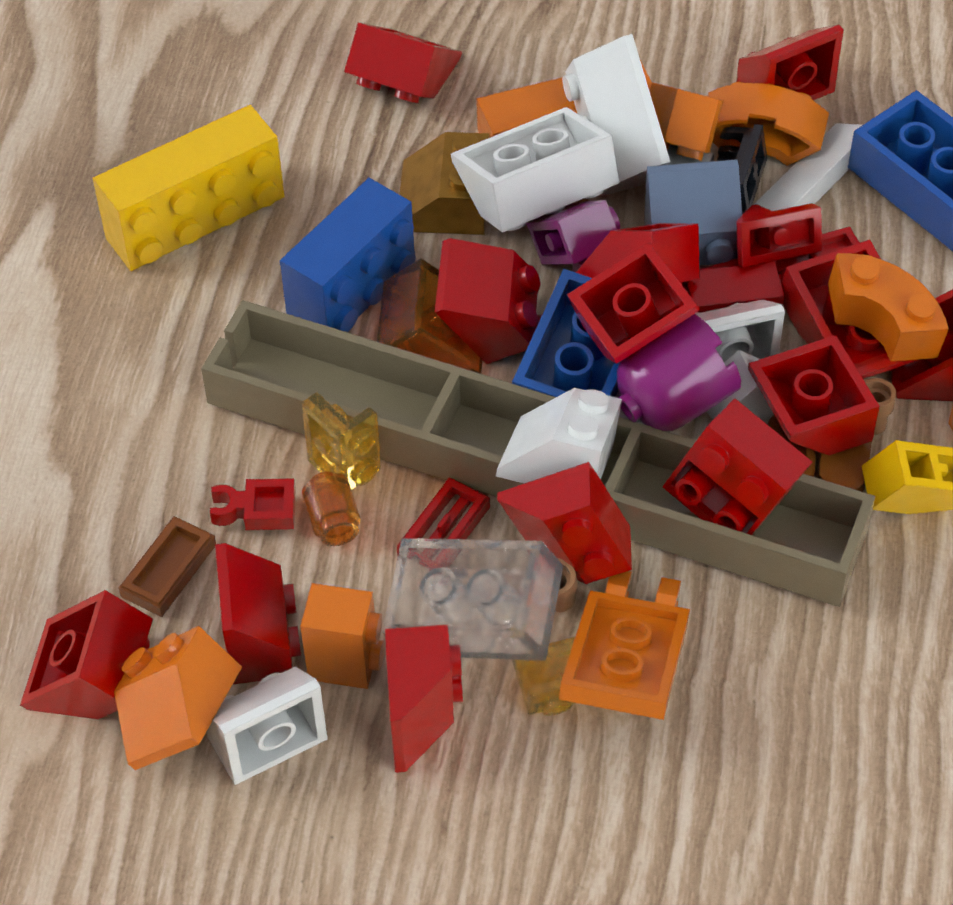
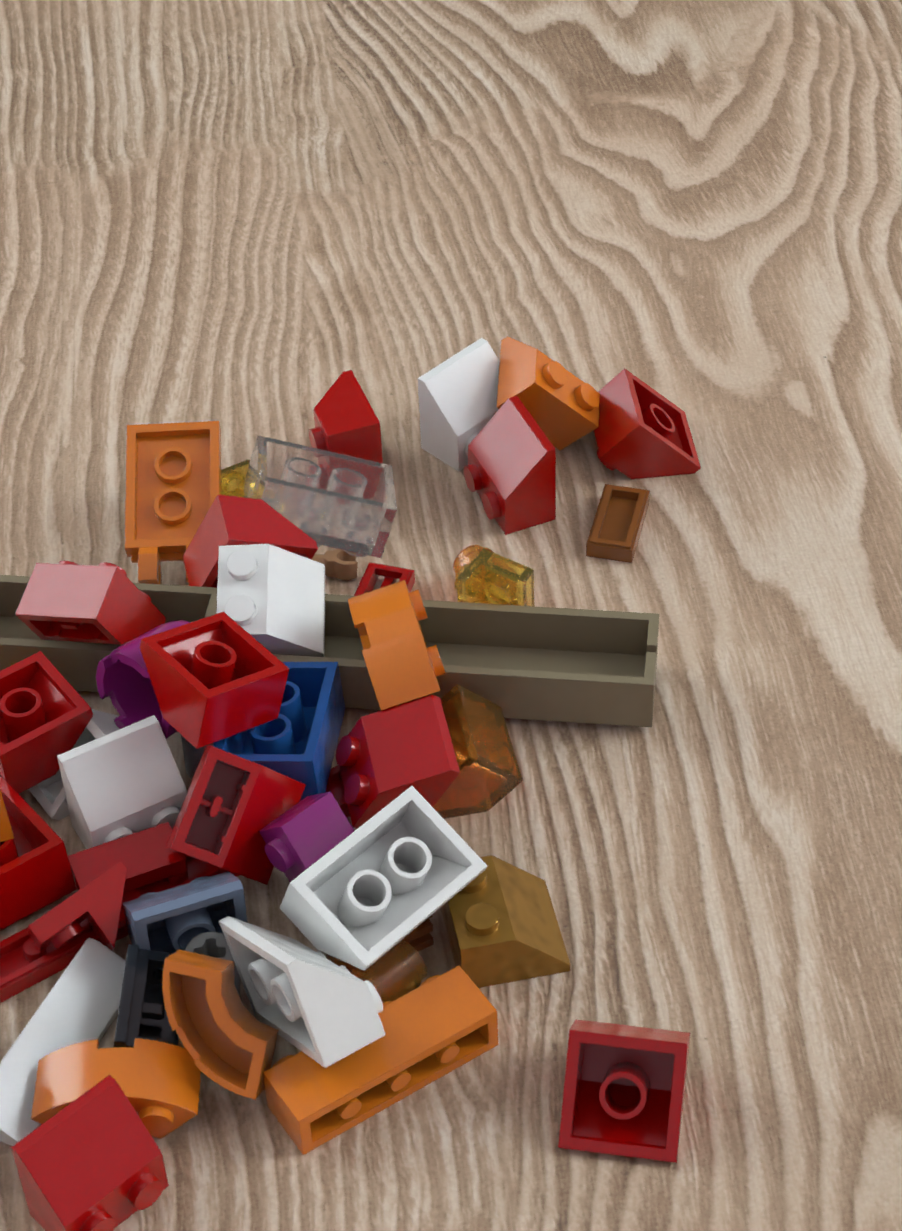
camera: 165 degrees right, 10 degrees down
(189, 187) = (786, 817): yellow brick -> none
(263, 504) = (558, 574): red plate -> none
(341, 636) = (427, 462): orange brick -> none
(348, 257) = (563, 774): blue brick -> none
(457, 359) = (394, 644): none -> orange brick

